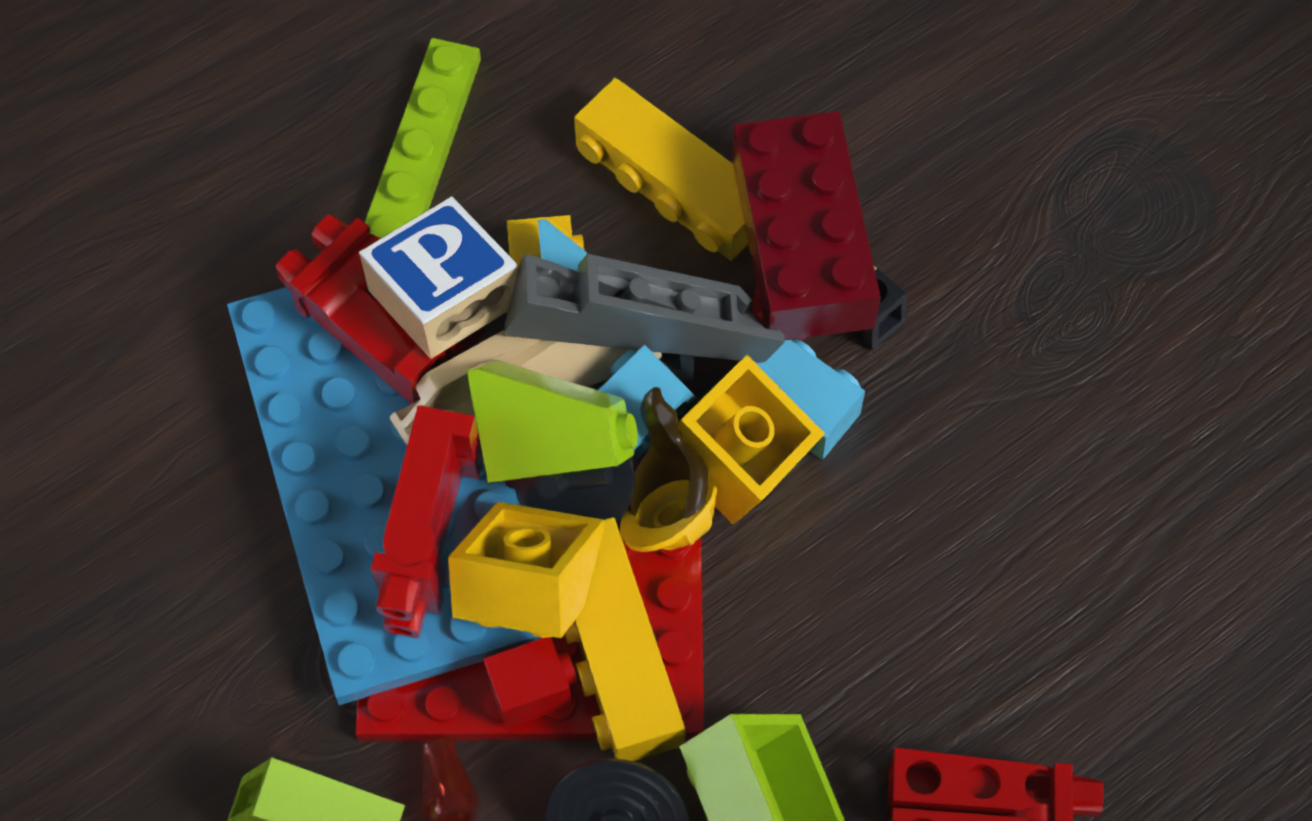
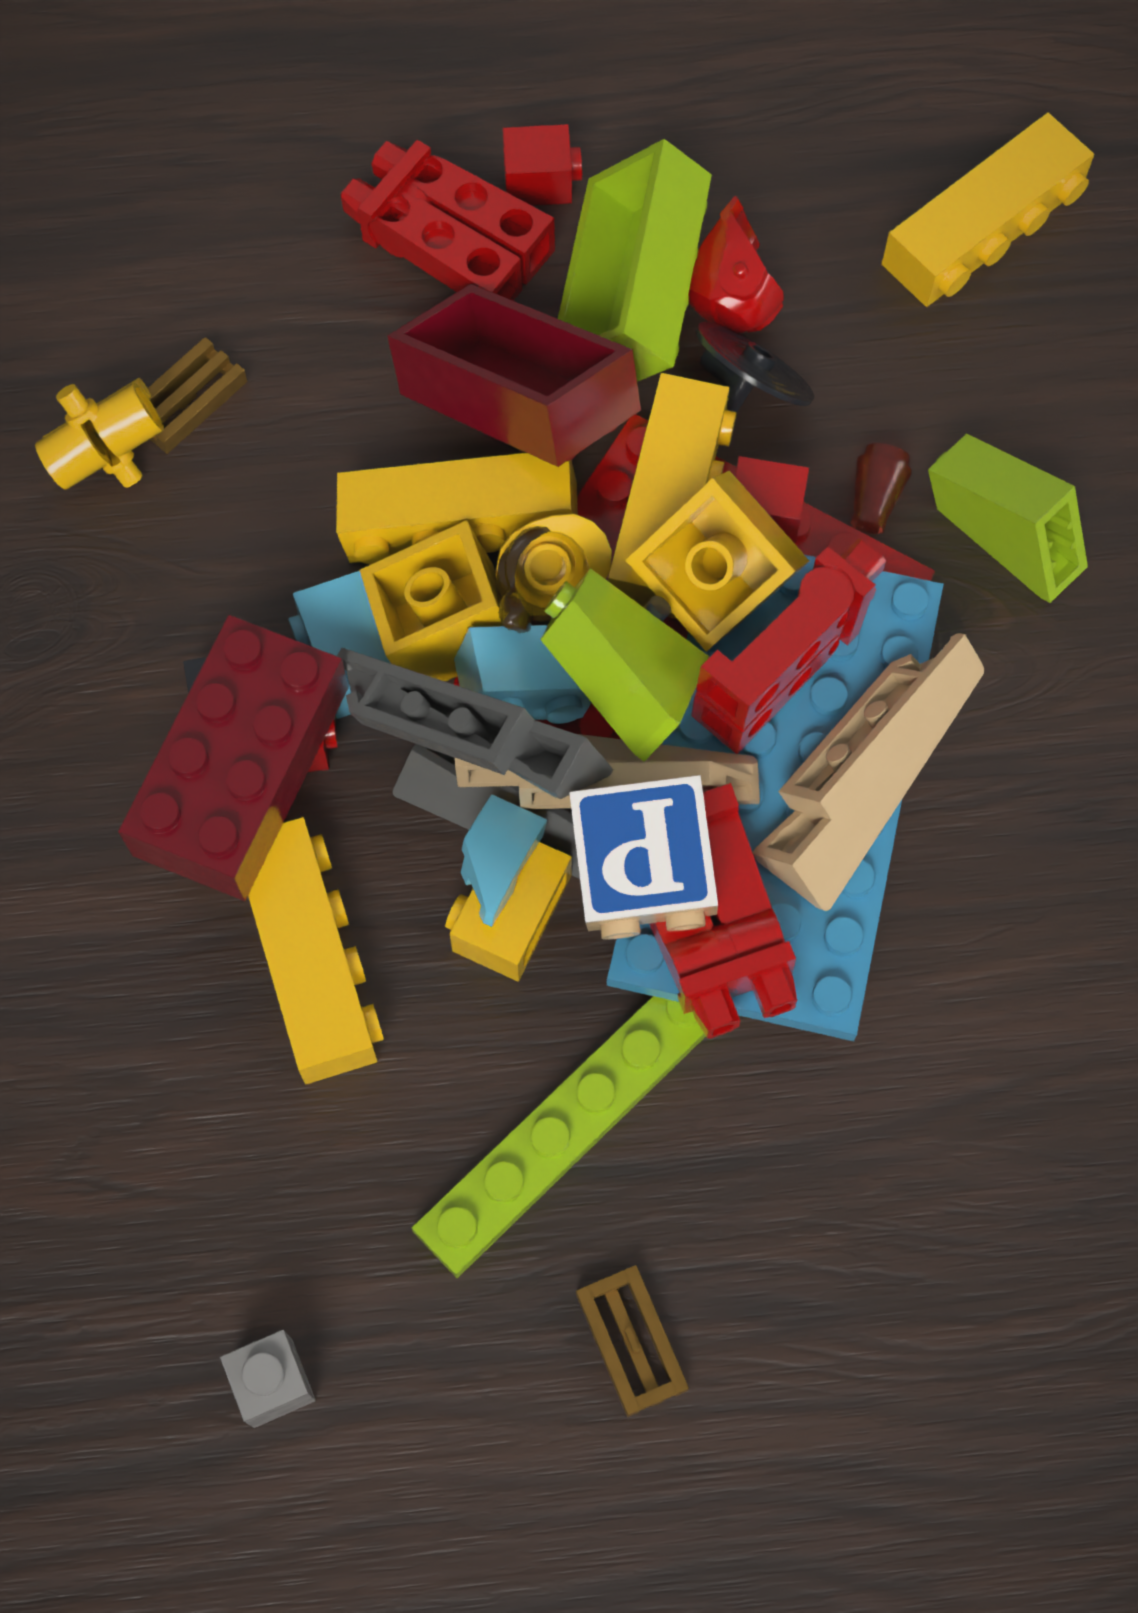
camera: 150 degrees left, 5 degrees up
(316, 482) = (864, 771): none -> tan wedge
(332, 73) = (653, 1394): none -> pearl gold tile
(786, 542) = (403, 505): none -> yellow brick
(812, 652) = (515, 373): none -> dark red piece
(1097, 495) = (182, 382): none -> pearl gold tile
(1122, 441) = (99, 435): none -> yellow pin

